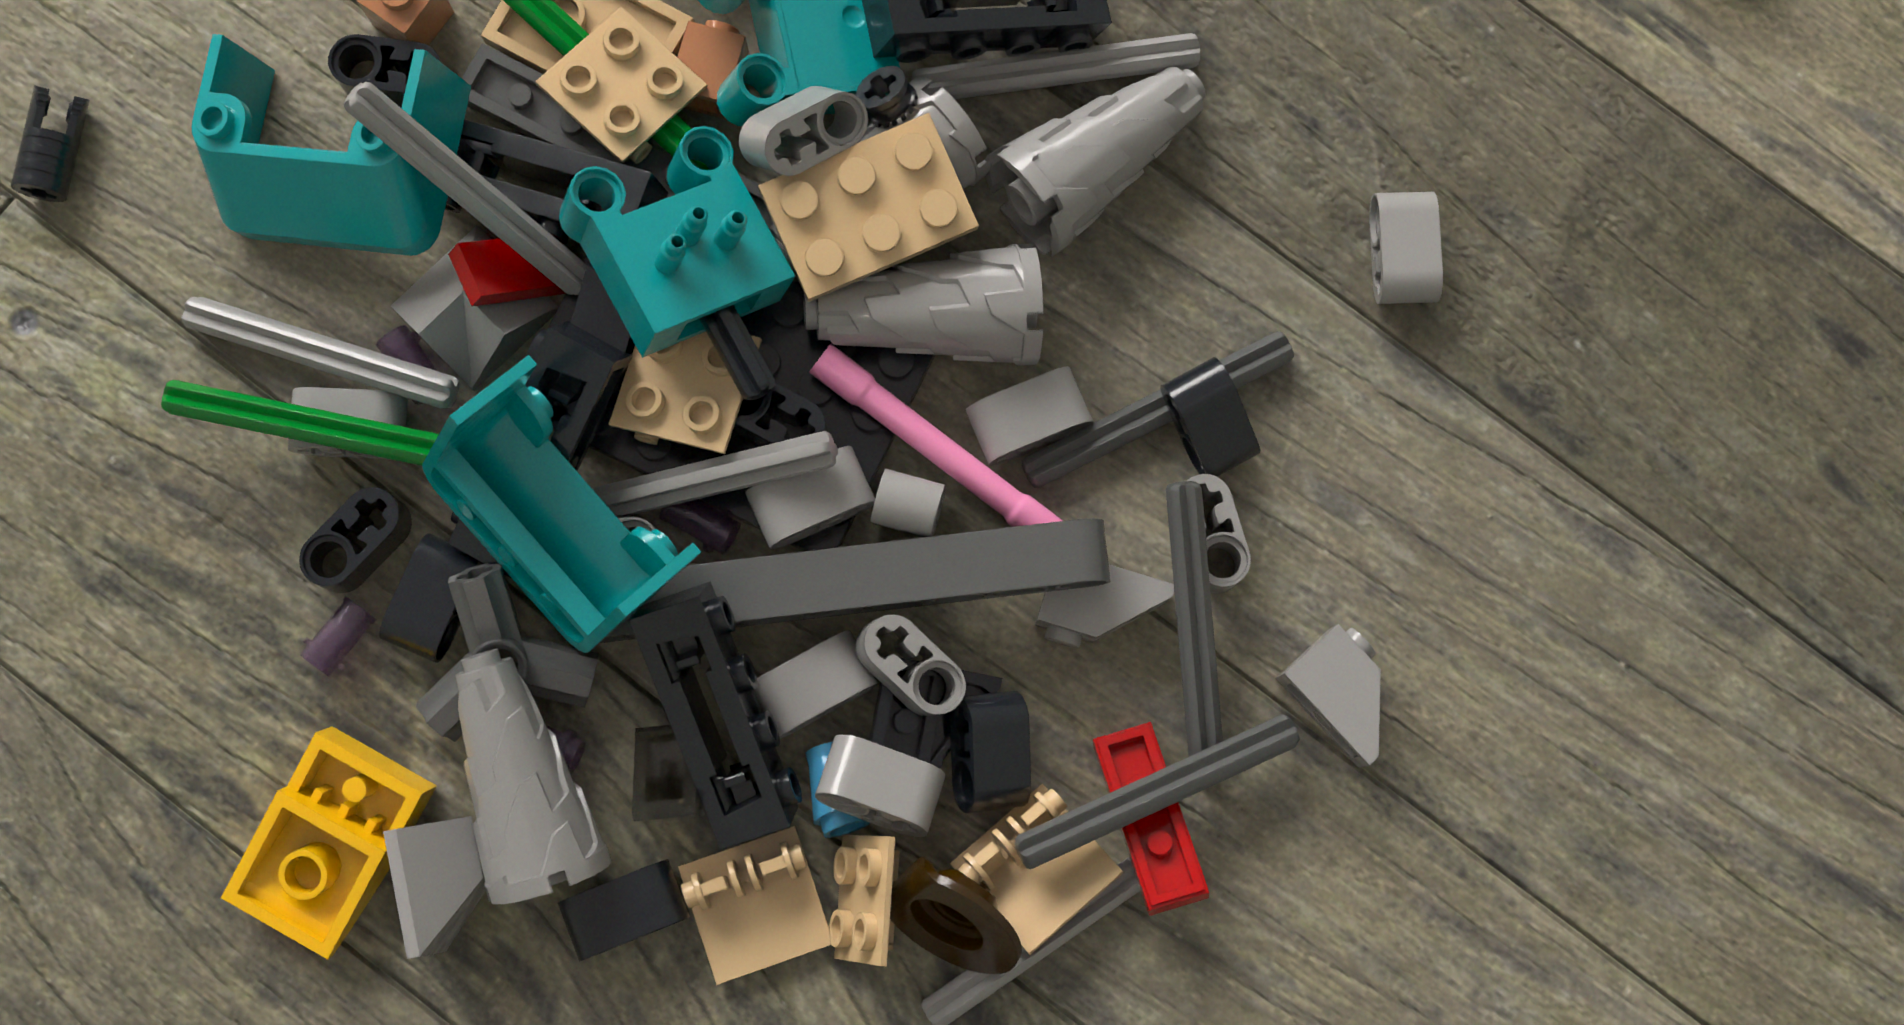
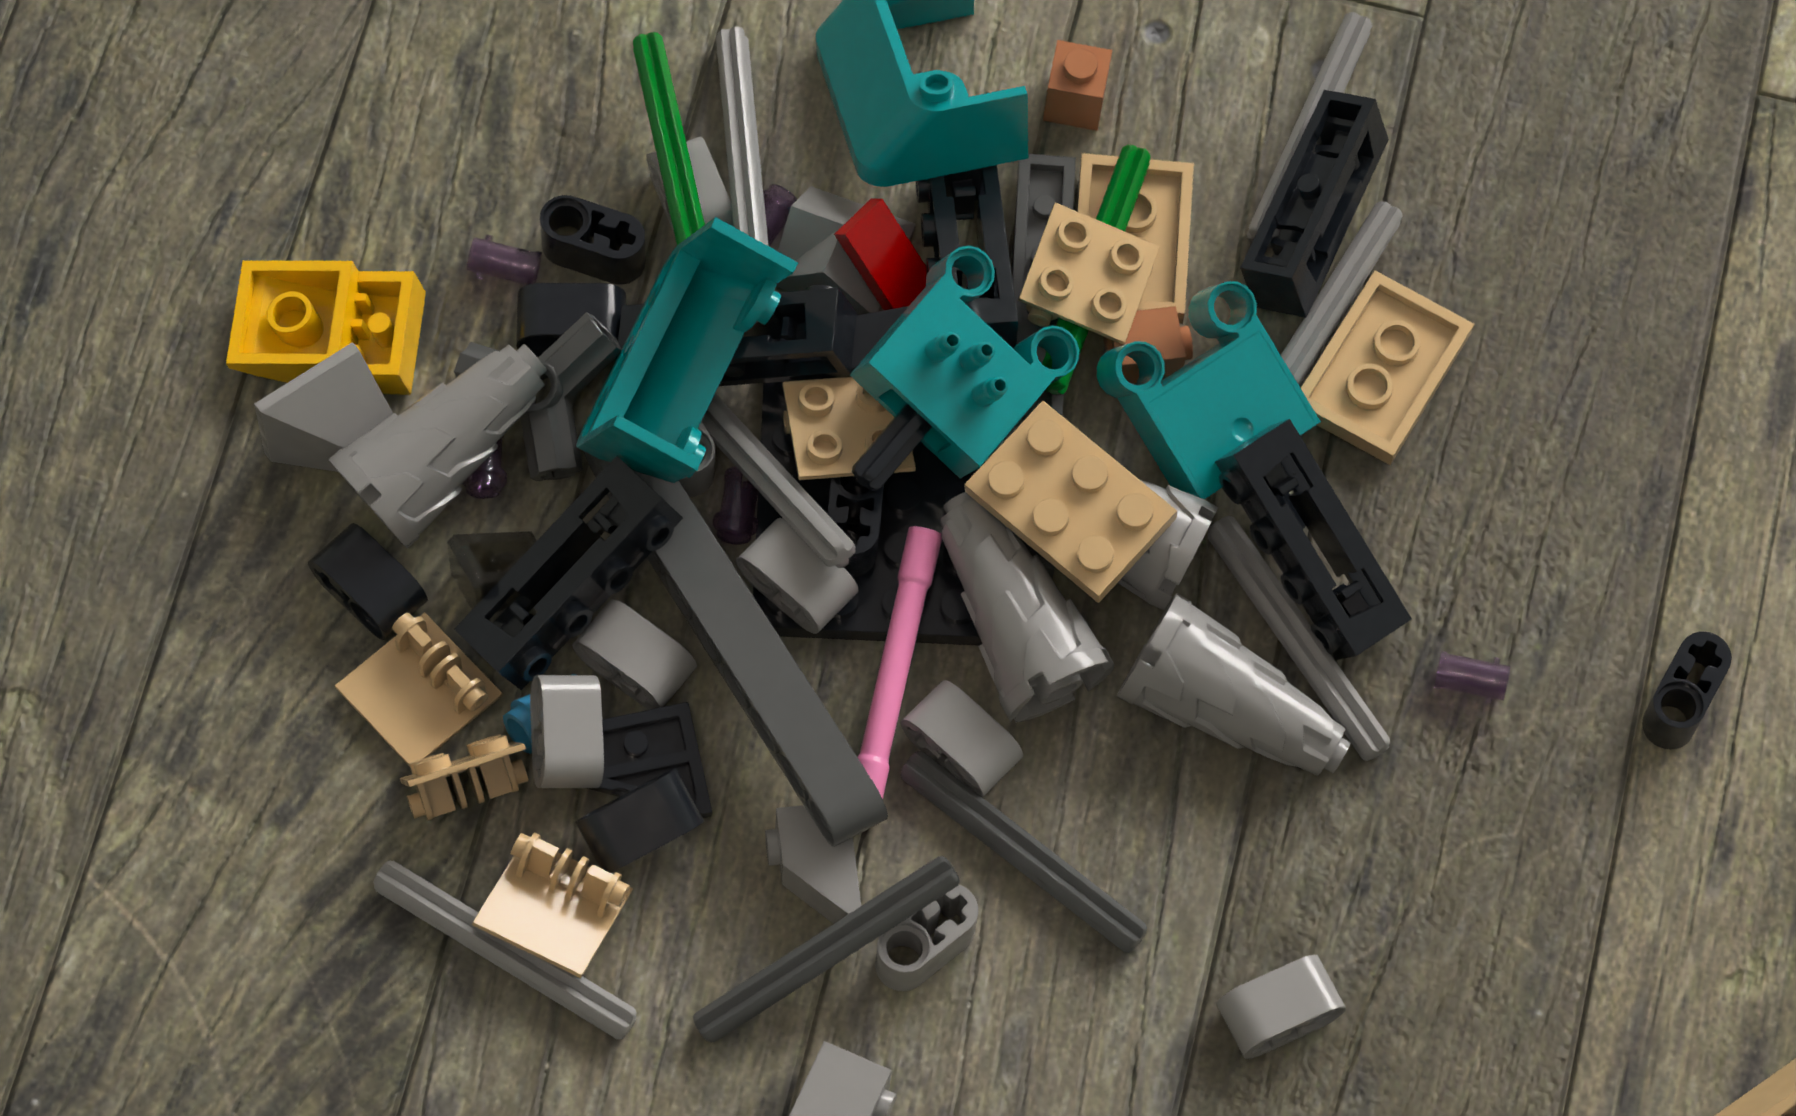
camera: 65 degrees right, 15 degrees down
(384, 53) = (1015, 59): black beam -> none
(465, 186) = (930, 174): light grey axle -> none
(803, 117) = (1088, 421): light grey beam -> none
(893, 106) = (1180, 479): black bush -> none
(908, 503) = (830, 658): light grey beam -> none
(909, 645) = (675, 719): light grey beam -> none
(953, 919) = (477, 839): dark brown hat -> none
(1156, 791) = (667, 972): dark grey axle -> none
(1161, 841) = (640, 985): red tile -> none
(1210, 418) = (1030, 889): black beam -> none

